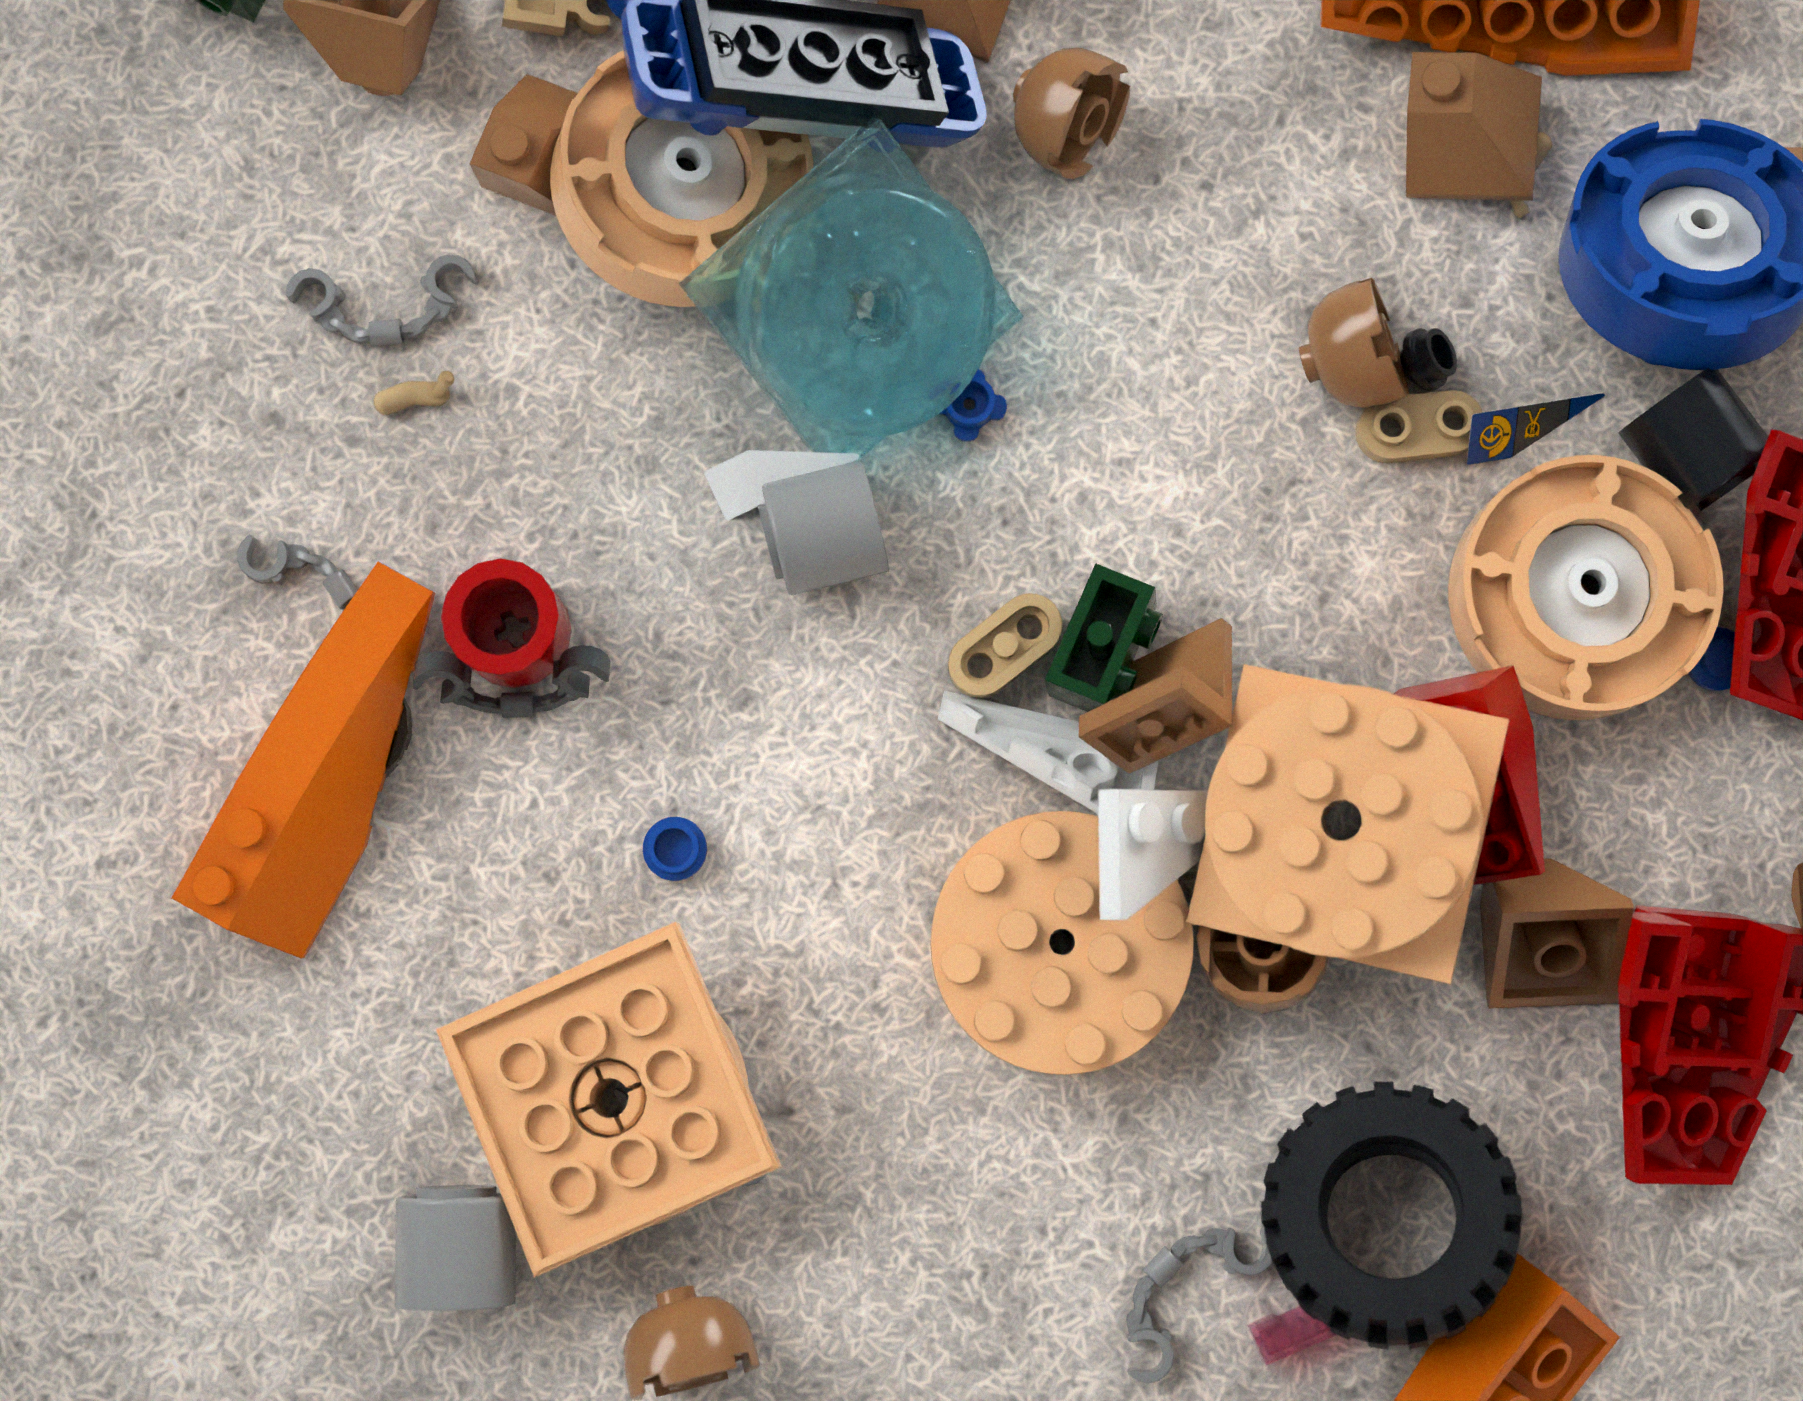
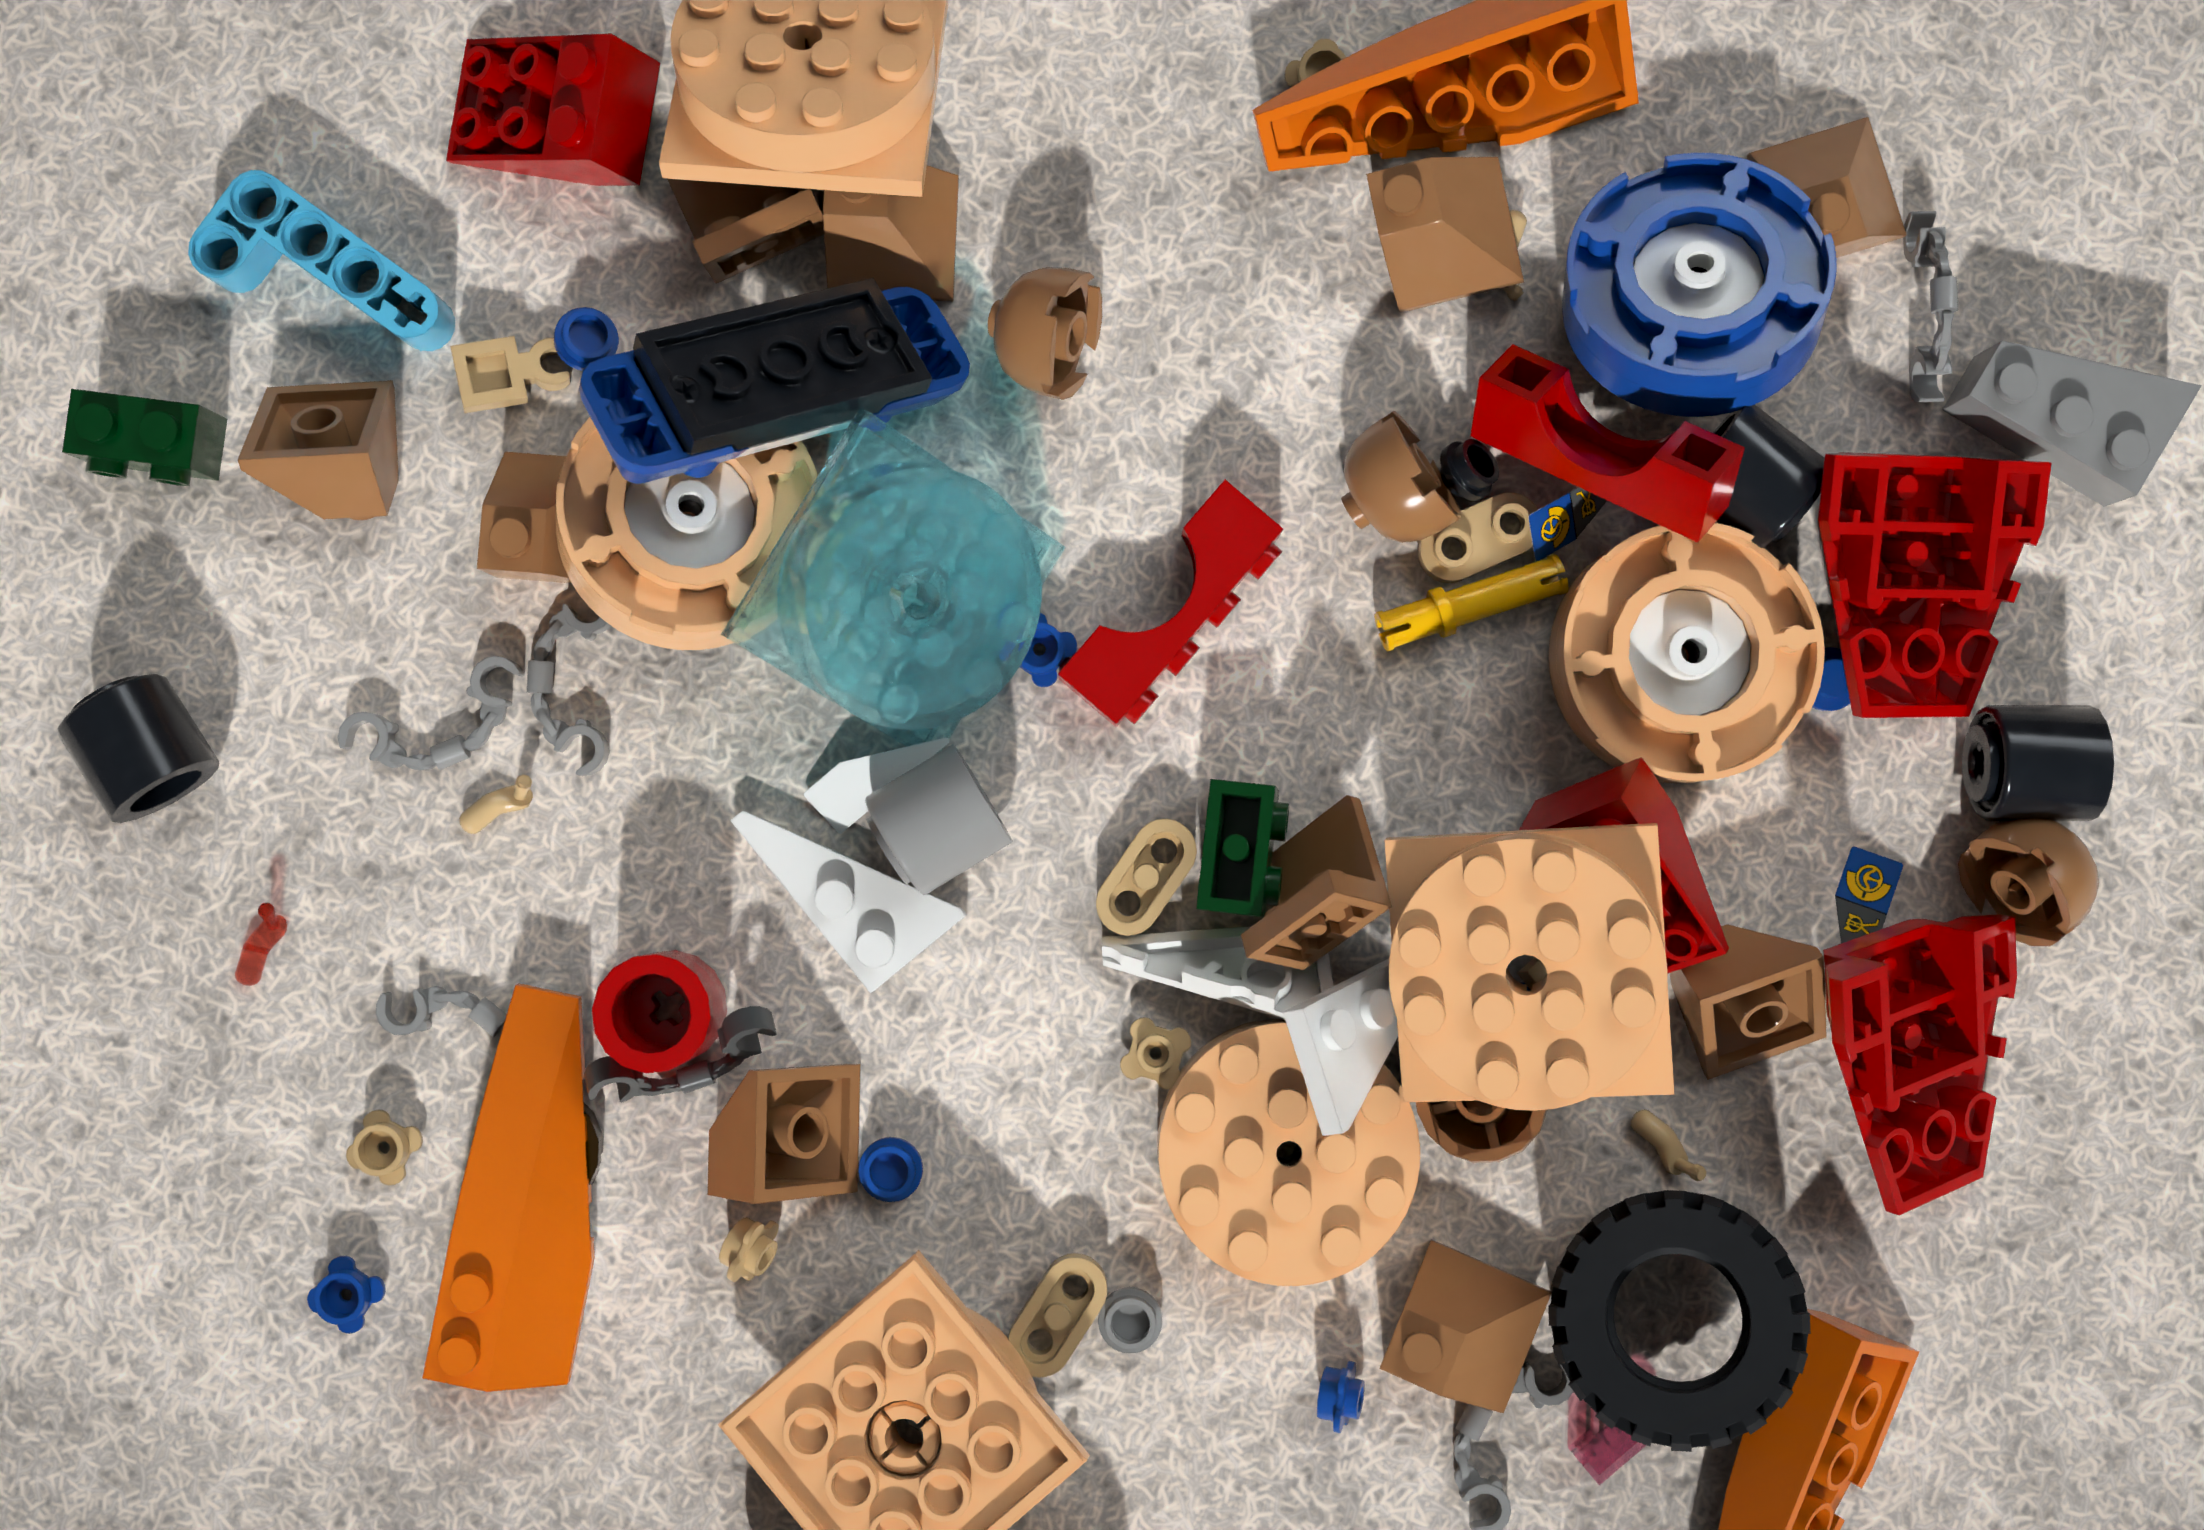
camera: 20 degrees left, 5 degrees up
(101, 234) = (137, 746): none -> black piece
(103, 807) = (330, 1305): none -> blue plate
(149, 456) = (259, 944): none -> clear red piece
(185, 676) = (365, 1150): none -> tan plate
(491, 295) = (541, 683): none -> light grey piece
(516, 880) = (749, 1249): none -> tan plate
(589, 780) = (787, 1135): none -> medium nougat slope
(725, 598) = (861, 912): none -> white wing
(791, 1035) = (1059, 1313): none -> tan plate
(858, 1064) = (1130, 1320): none -> light grey plate
(960, 797) = (1147, 1036): none -> tan plate
(1040, 441) = (1225, 544): none -> red arch
(1040, 1199) = (1340, 1396): none -> blue plate
(1181, 1170) = (1465, 1329): none -> medium nougat slope
(1371, 483) = (1445, 611): none -> yellow pin
(1430, 1057) = (1667, 1145): none -> tan piece
(1507, 323) = (1535, 415): none -> red arch
(1696, 873) = (1865, 893): none -> sticker

